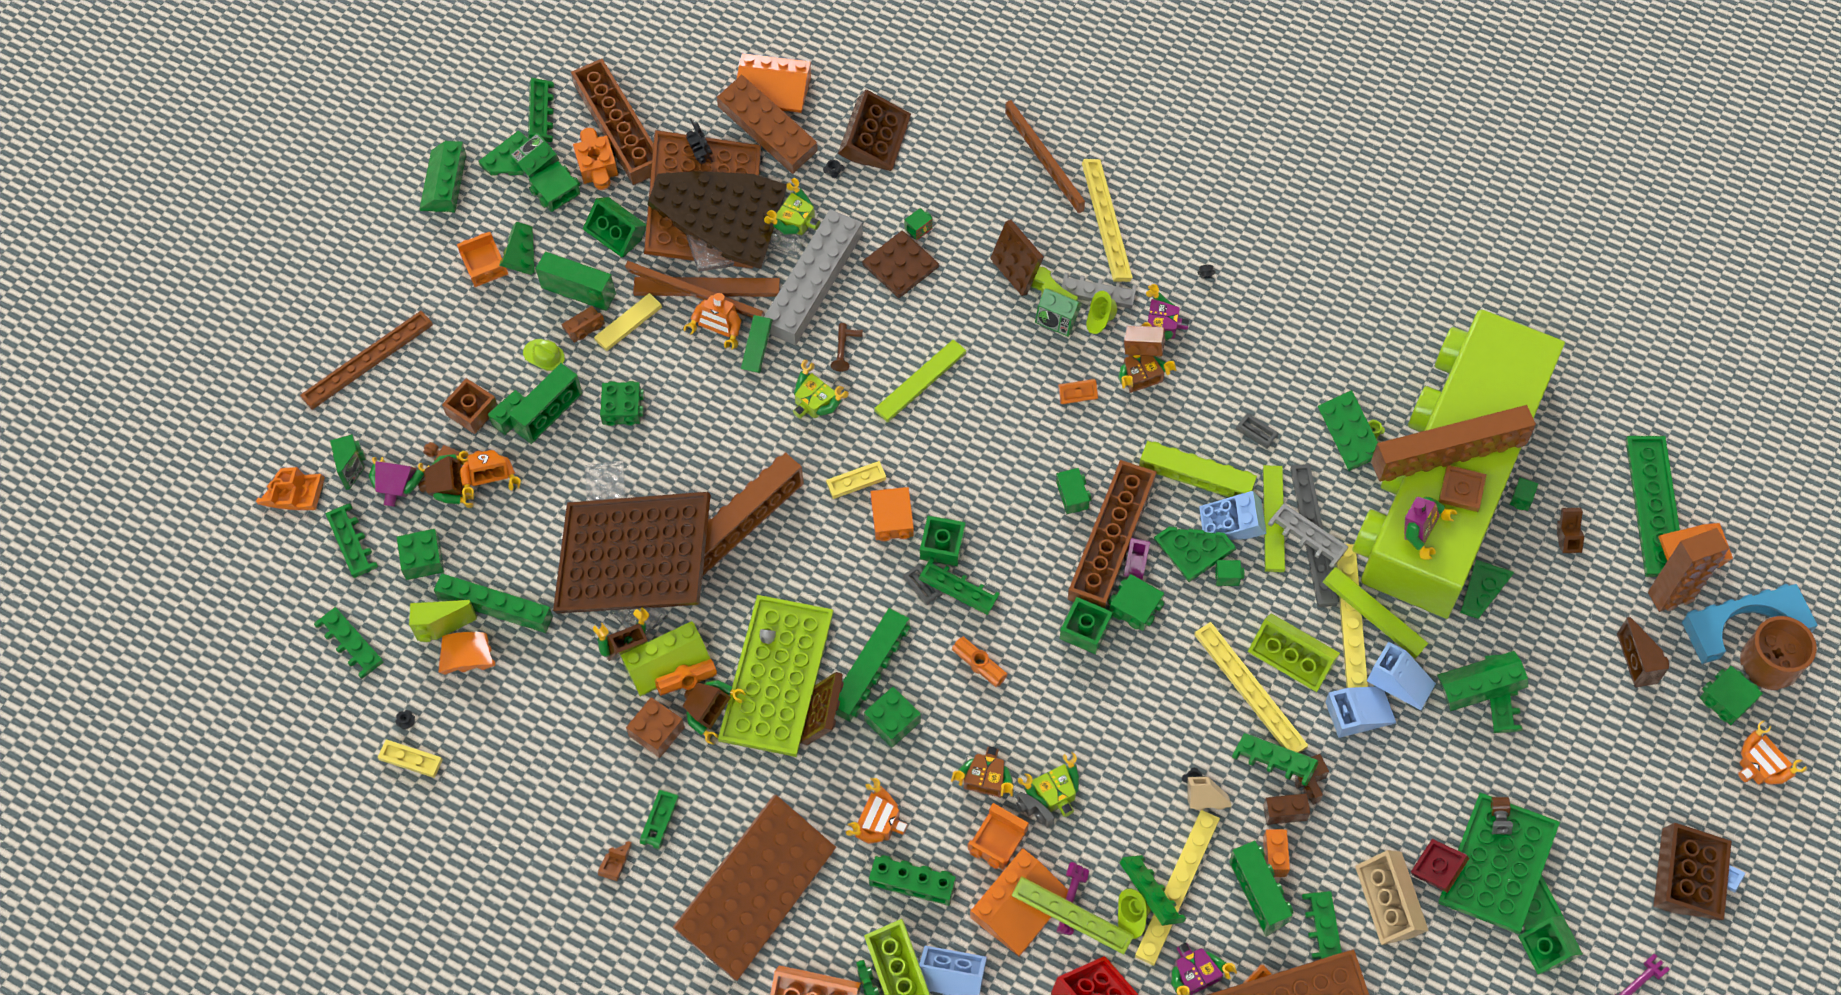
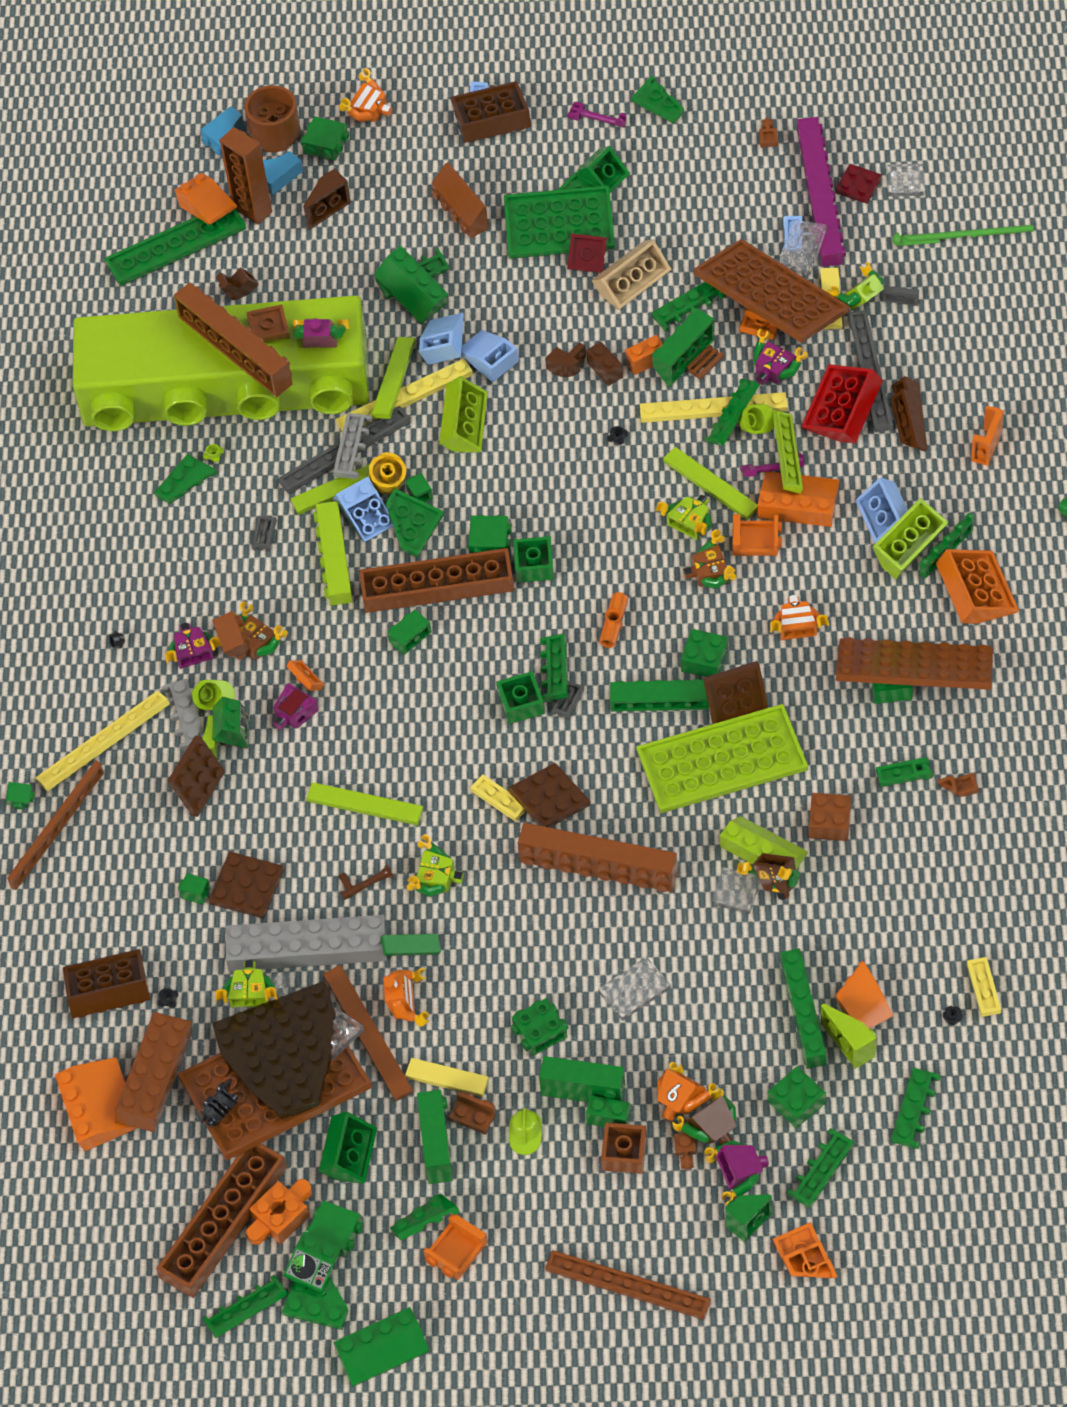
camera: 115 degrees left, 5 degrees down
(632, 553) = (690, 910): reddish brown plate -> none
(687, 288) = (384, 1030): dark orange tile -> none
(693, 674) = (771, 819): orange piece -> none
(706, 703) = (785, 786): reddish brown torso -> none
(767, 636) = (694, 776): light grey hinge -> none
(830, 517) = (549, 796): none -> reddish brown plate
(892, 514) = (515, 750): orange panel -> none
(912, 880) = (831, 572): green brick -> none
(1030, 806) = (716, 517): dark grey slope -> none
(1050, 368) = (293, 708): none -> torso
(1087, 832) = (710, 483): none -> lime tile
(1088, 139) = (19, 795): none -> green brick
(1137, 558) = (445, 550): slope -> none
(1206, 794) = (628, 417): tan slope -> none
(1232, 893) = (702, 360): none -> dark orange tile
(1250, 689) = (515, 432): light yellow plate -> none
(1257, 548) = (385, 463): none -> yellow brick
(1276, 757) = (566, 385): green hinge -> none
(1349, 429) = (226, 465): green plate -> none
(1351, 379) = (184, 477): none -> green wing
(1501, 810) = (517, 232): leg -> none
(1574, 779) = (460, 201): none -> dark orange slope

